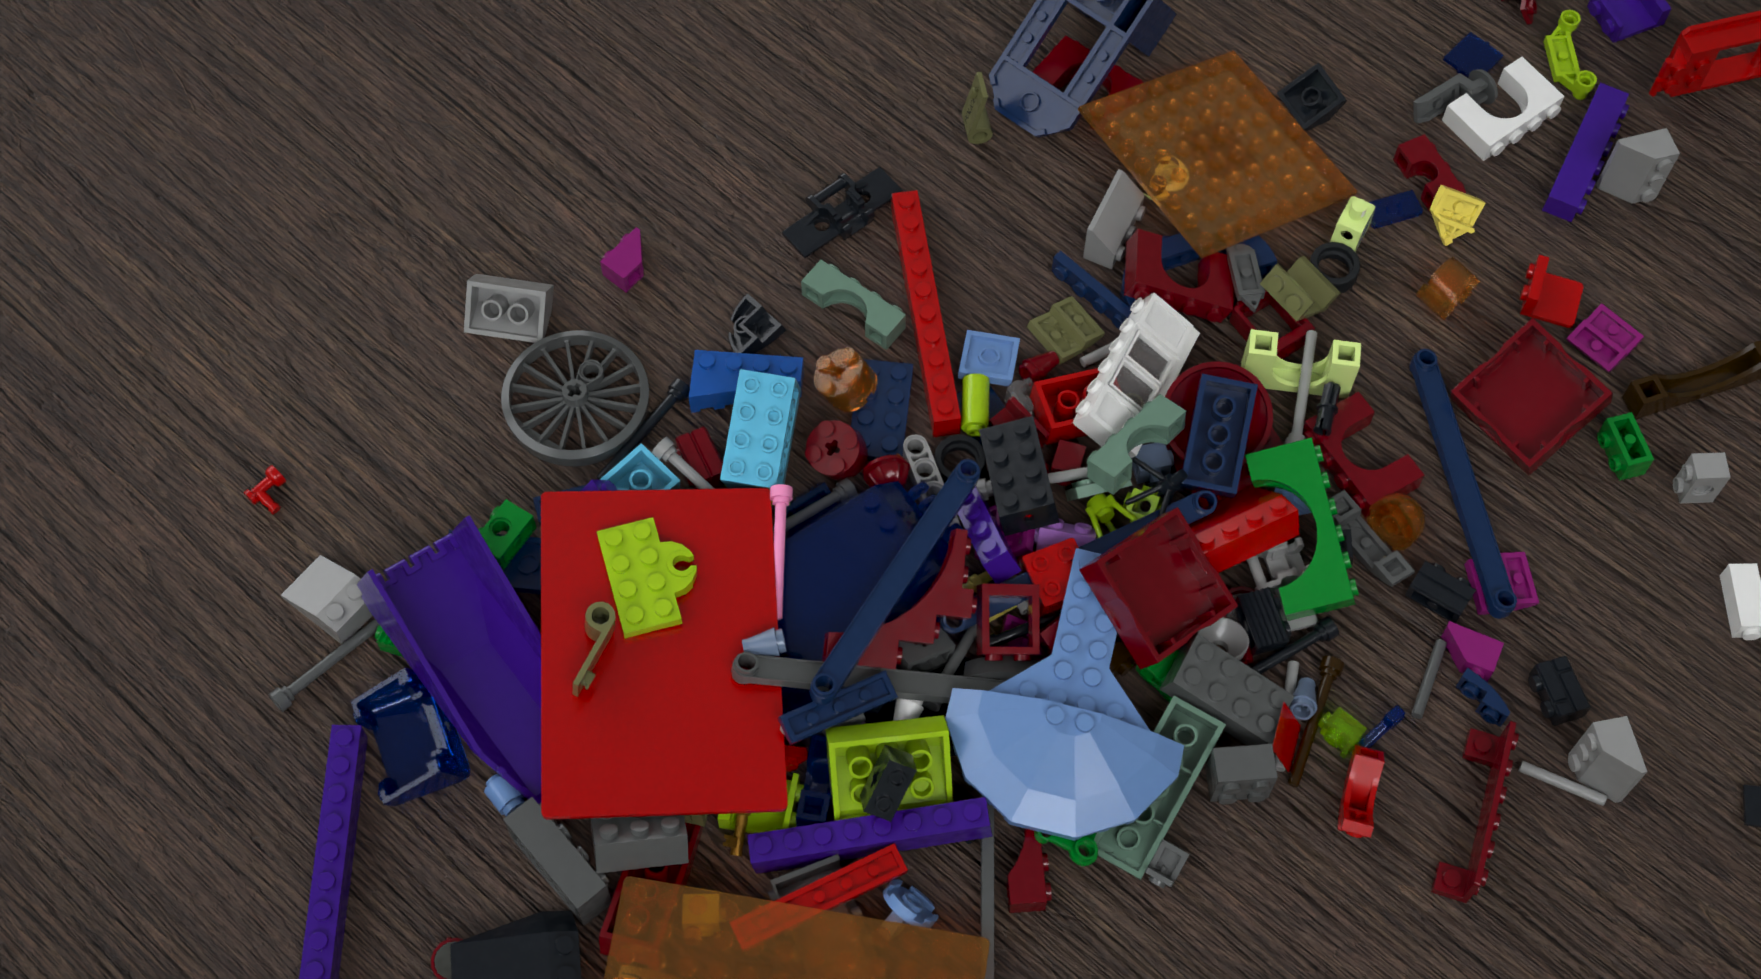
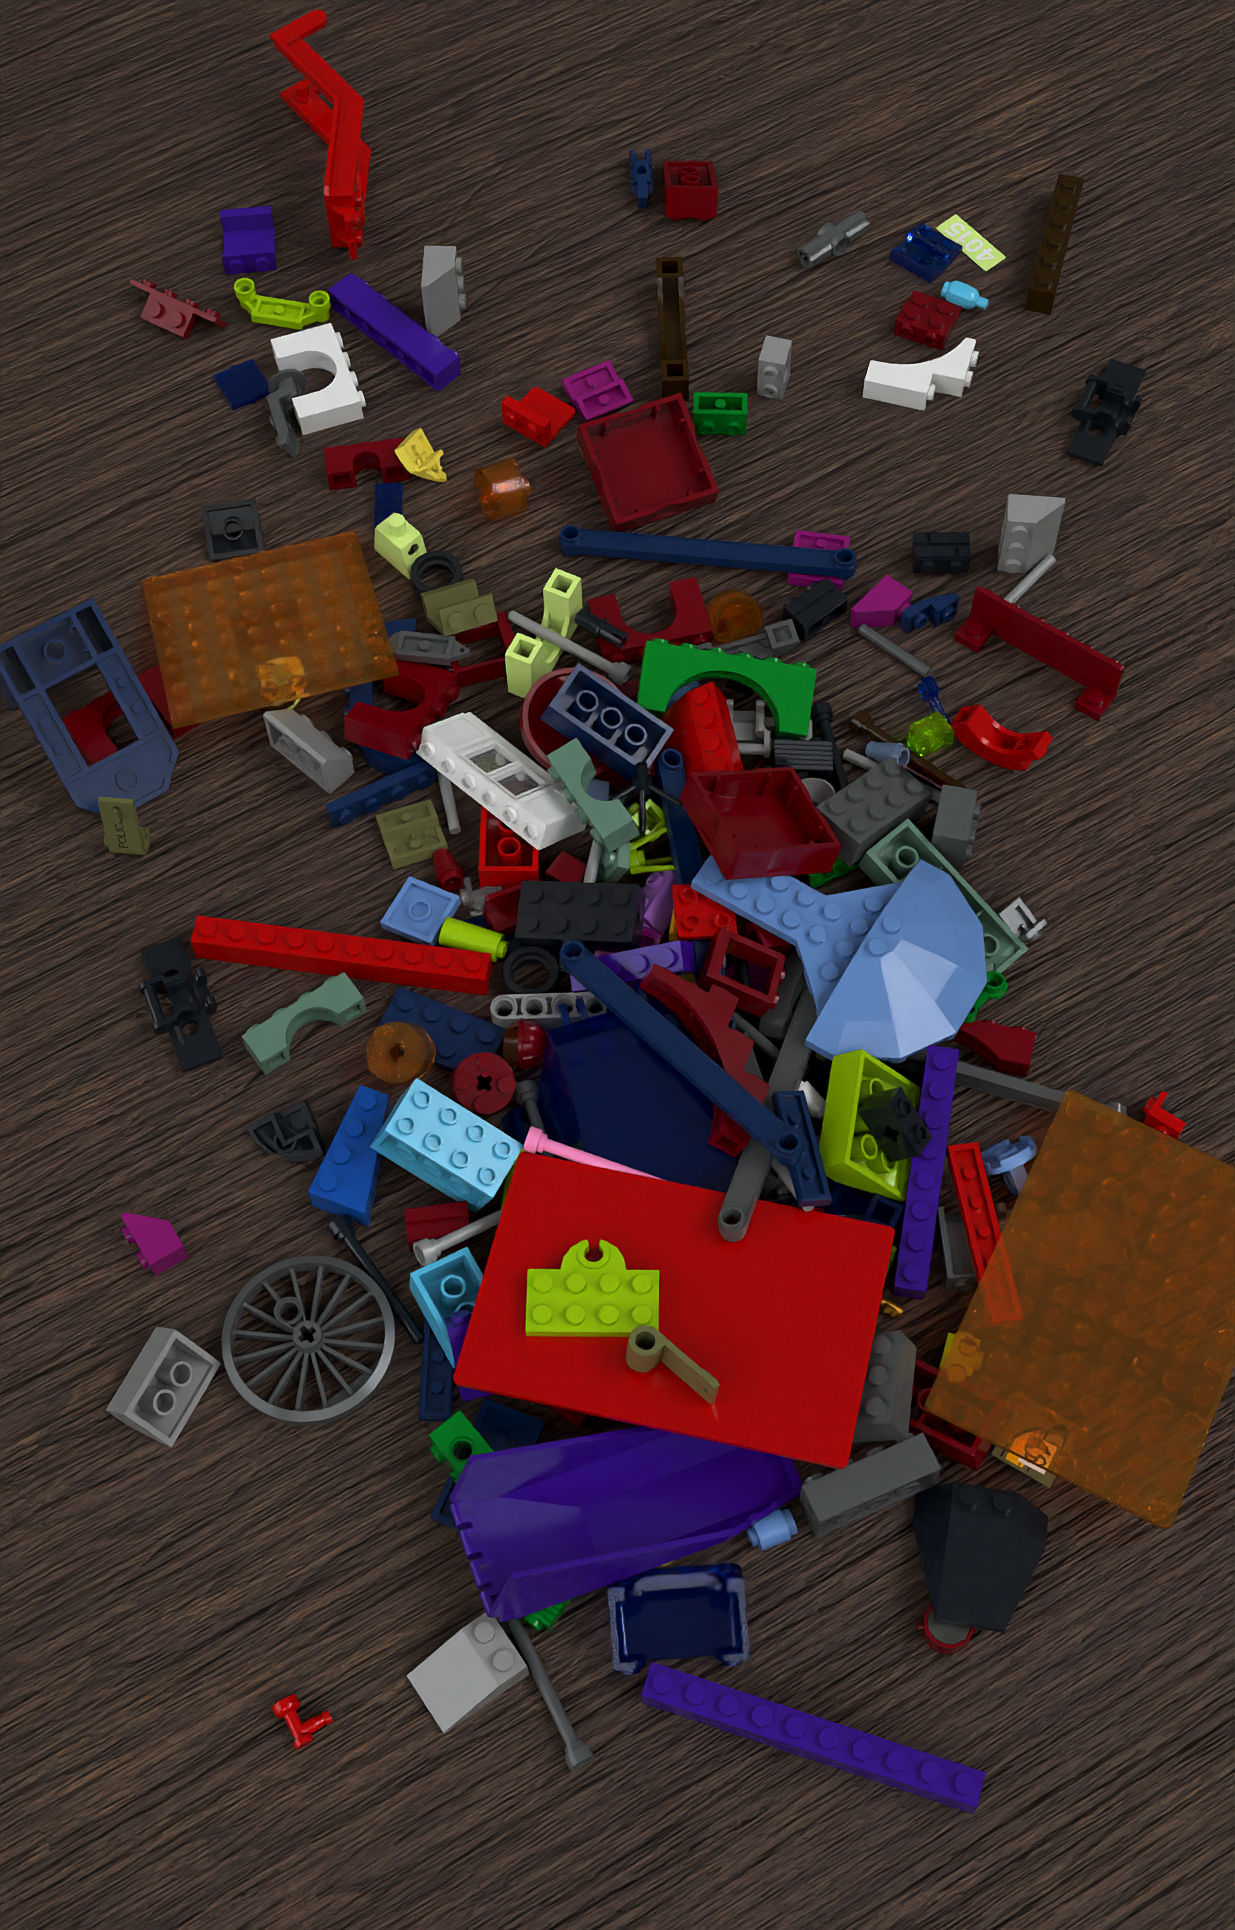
camera: 70 degrees left, 0 degrees up
(766, 643) = (709, 1196): sand blue cone -> none

